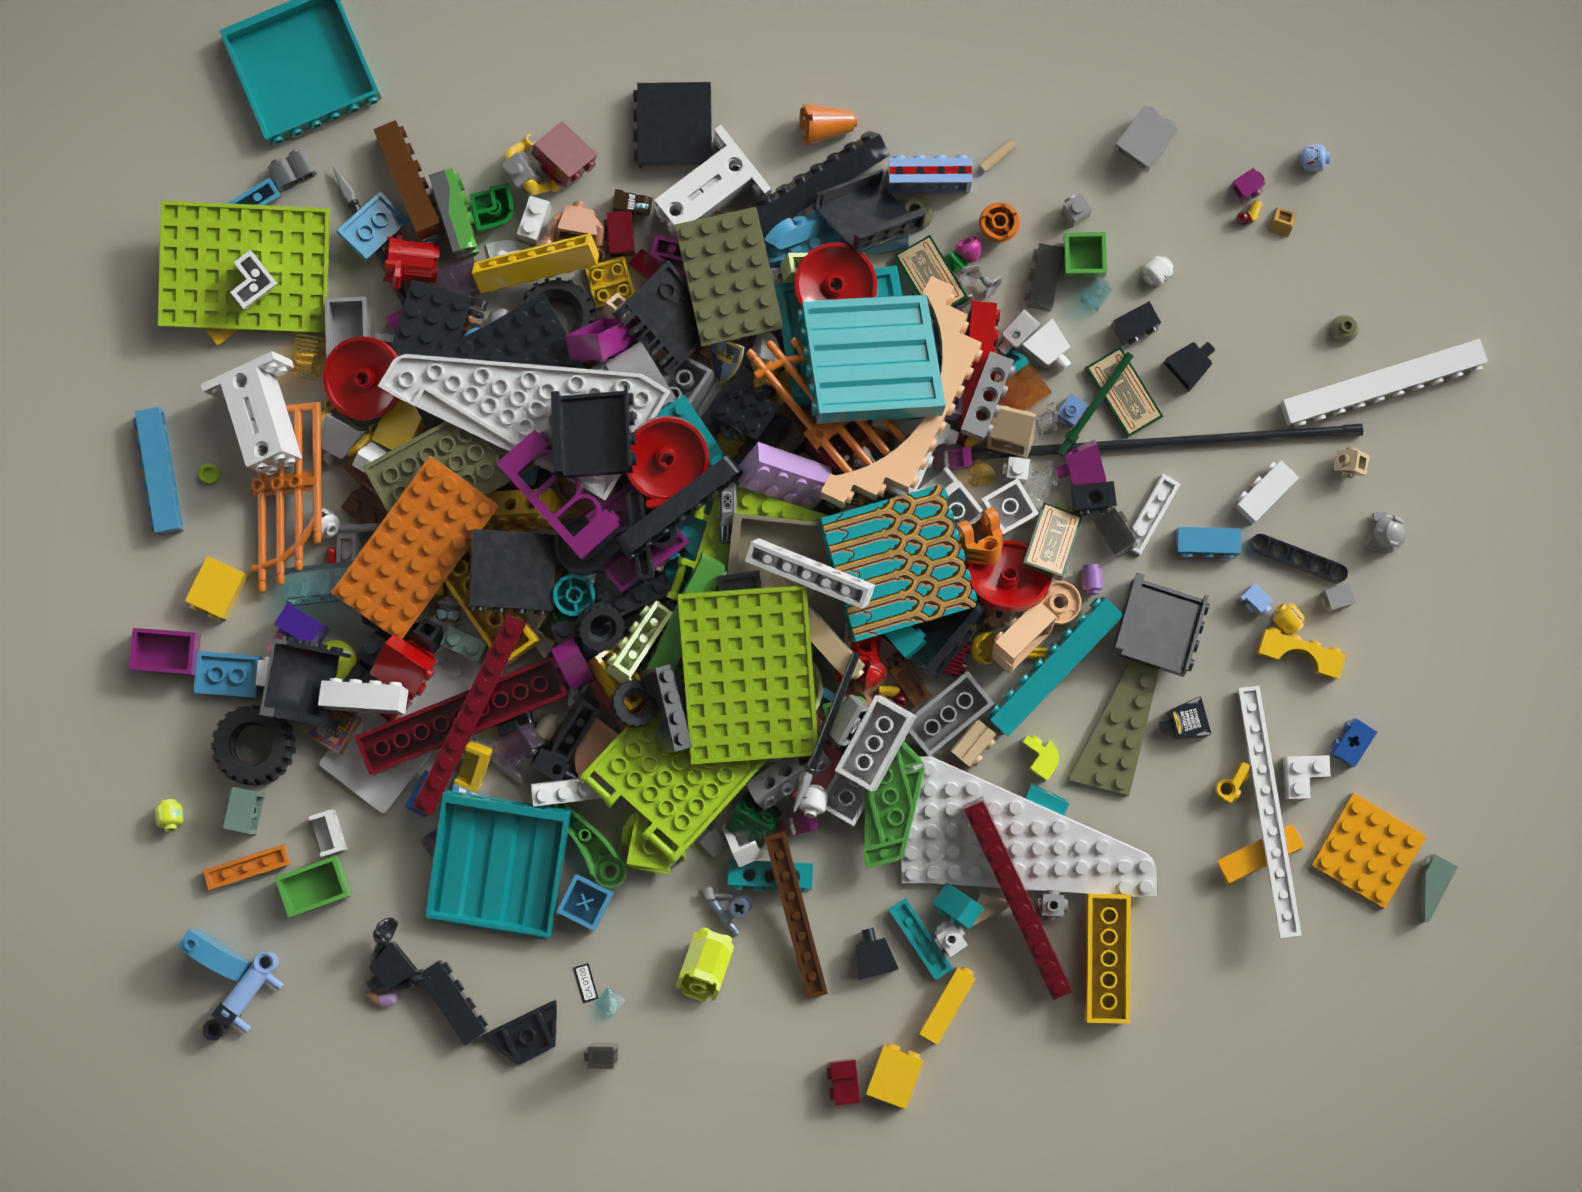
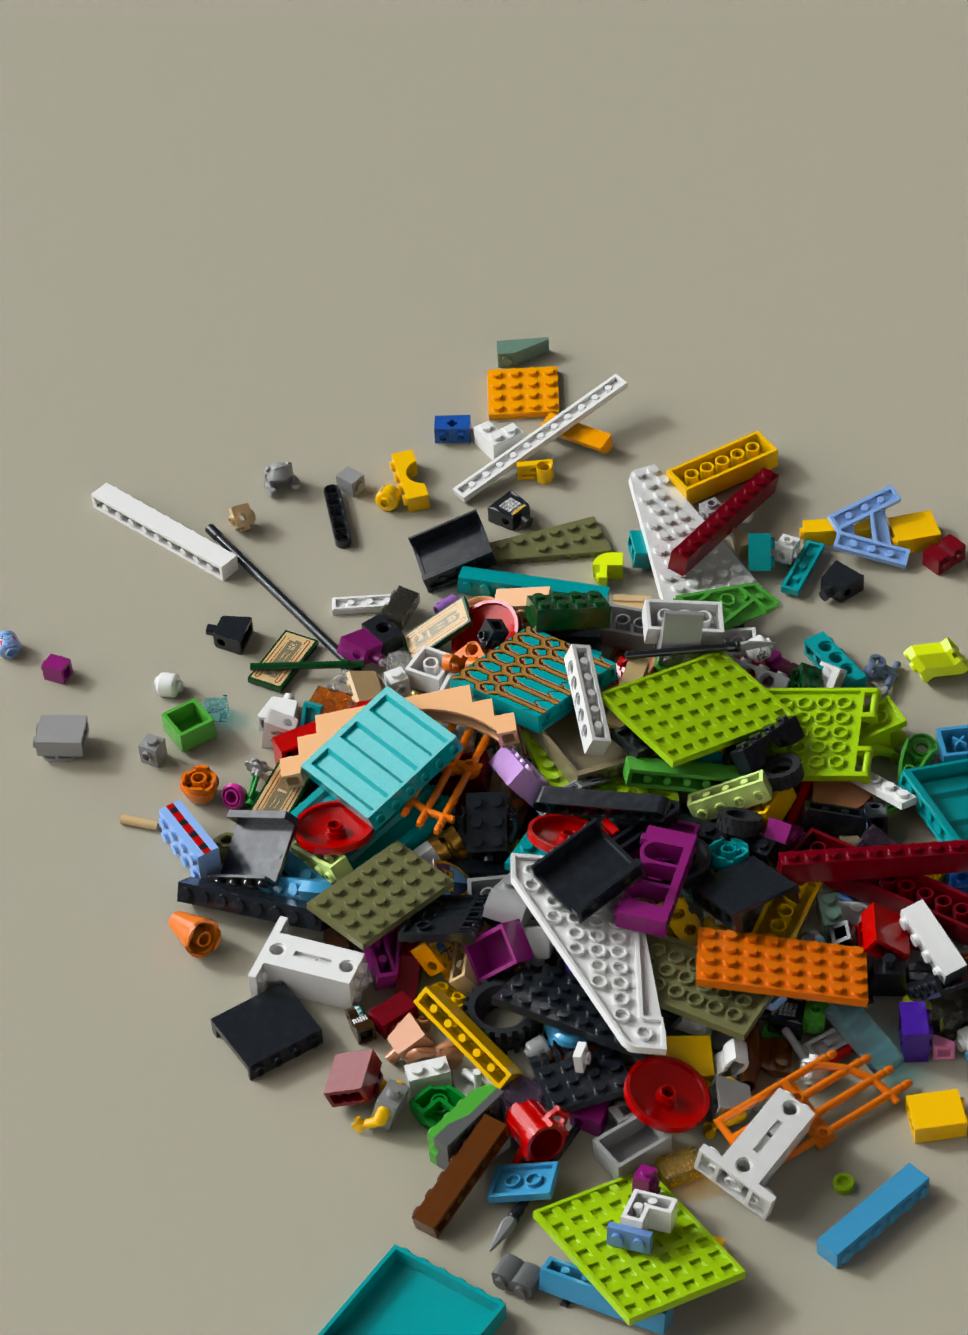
camera: 120 degrees left, 40 degrees down
(231, 256) = (629, 1238): none -> medium blue plate
(293, 309) = (646, 1179): none -> magenta brick
(440, 332) = (581, 1057): none -> white plate
(796, 914) = (850, 628): reddish brown plate -> none
(934, 1047) = (879, 547): none -> light blue plate
(969, 654) = (568, 611): none -> dark green brick
(989, 569) = (492, 633): none -> black brick
(994, 364) = (349, 696): light grey brick -> none
(1044, 277) = (224, 743): clear smoke brick -> none
(1071, 411) = (321, 674): medium blue brick -> none
(1136, 323) = (222, 676): black brick -> none
(1208, 542) = (365, 562): dark azure brick -> none
(1251, 215) = (81, 659): arm -> none
(1256, 600) = (388, 520): light blue brick -> none
(1266, 491) = (300, 550): white brick -> none
(1282, 222) = (72, 641): pearl gold slope -> none
(1344, 328) = (135, 570): olive cone -> none

